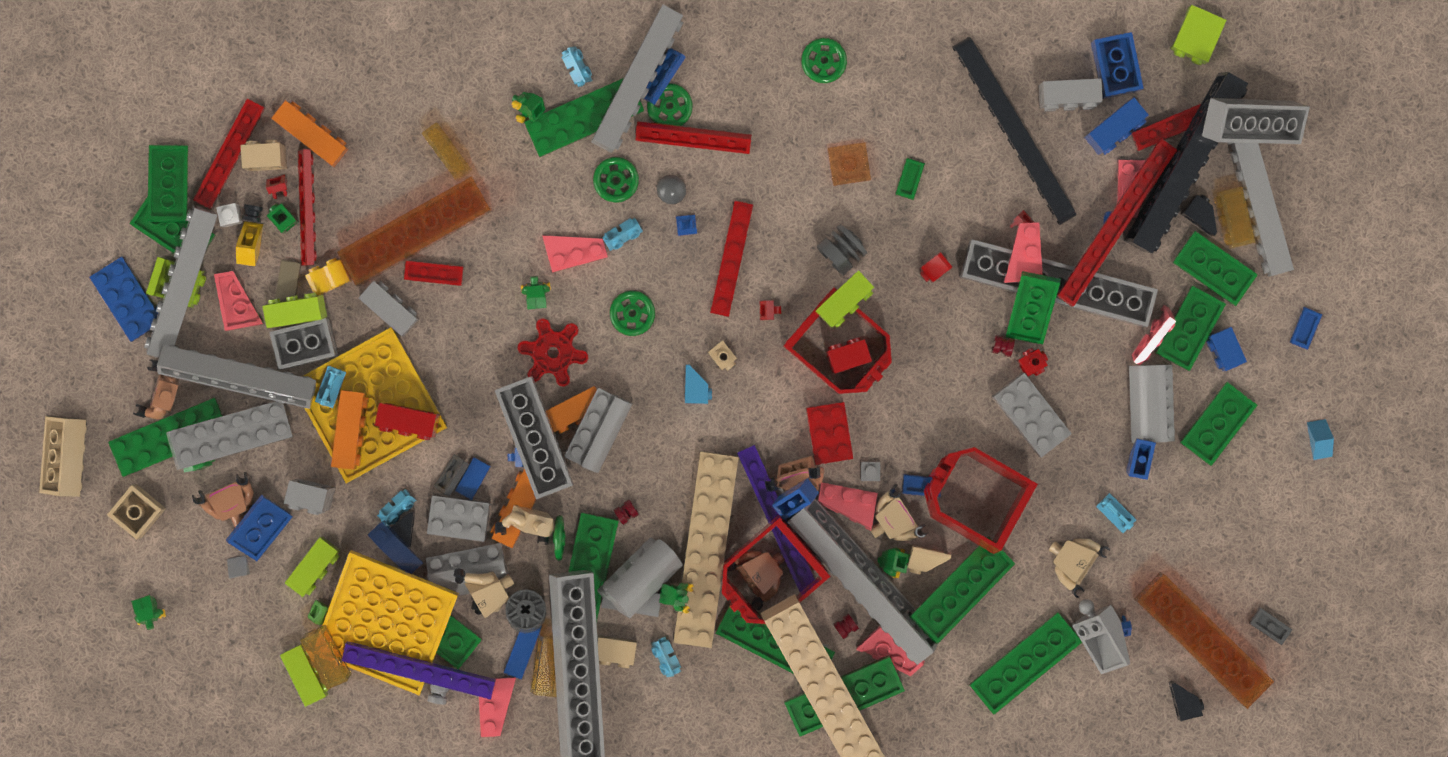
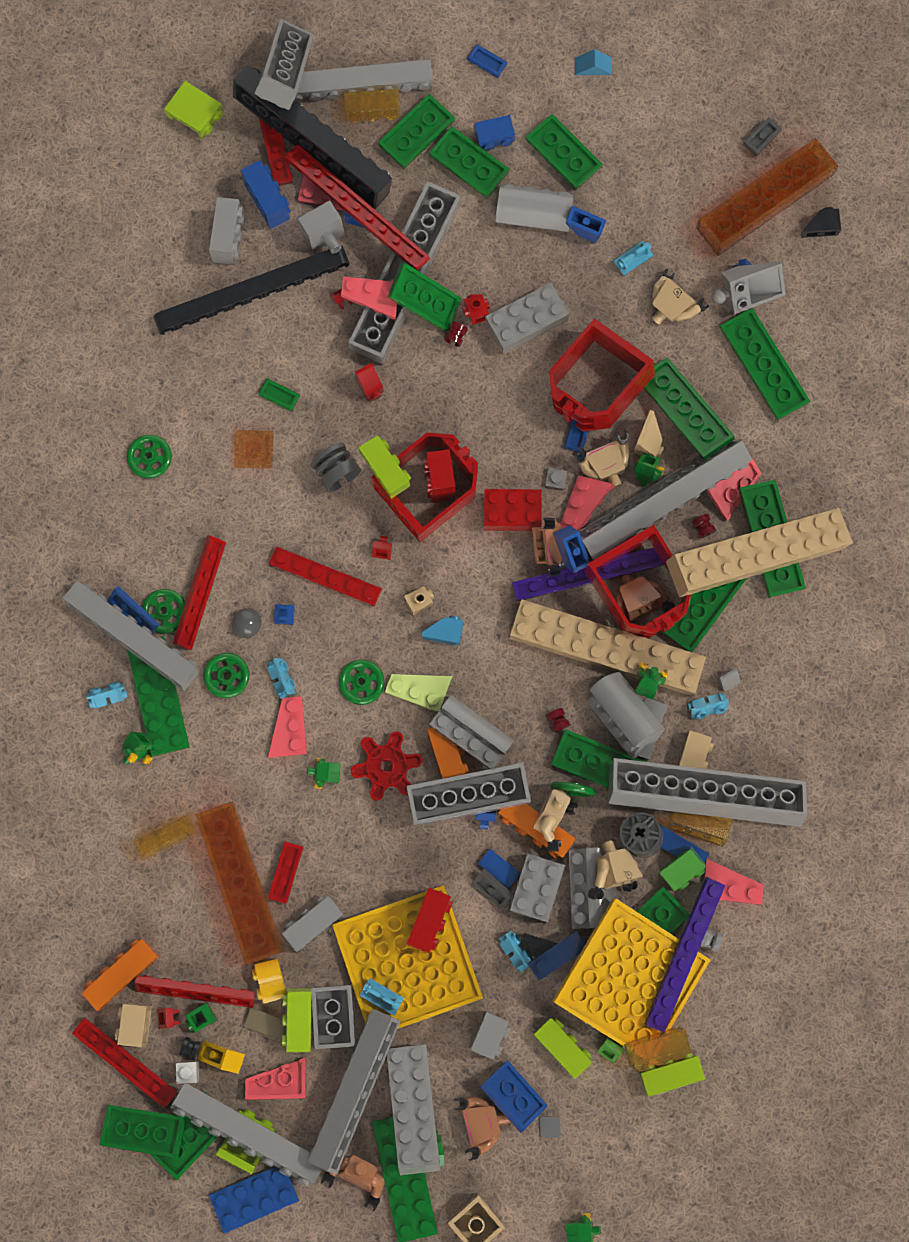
camera: 80 degrees left, 10 degrees down
(348, 430) = (428, 984): orange brick -> none
(500, 656) = (683, 868): none -> bright green brick
(634, 372) = (420, 689): none -> yellowish green wing
(695, 674) = (729, 680): none -> light grey slope
(1089, 191) = (322, 228): none -> light grey brick
(1117, 65) = (205, 182): blue brick -> none
(1155, 338) = (466, 189): coral wing -> none
(1201, 214) = (364, 133): black slope -> none

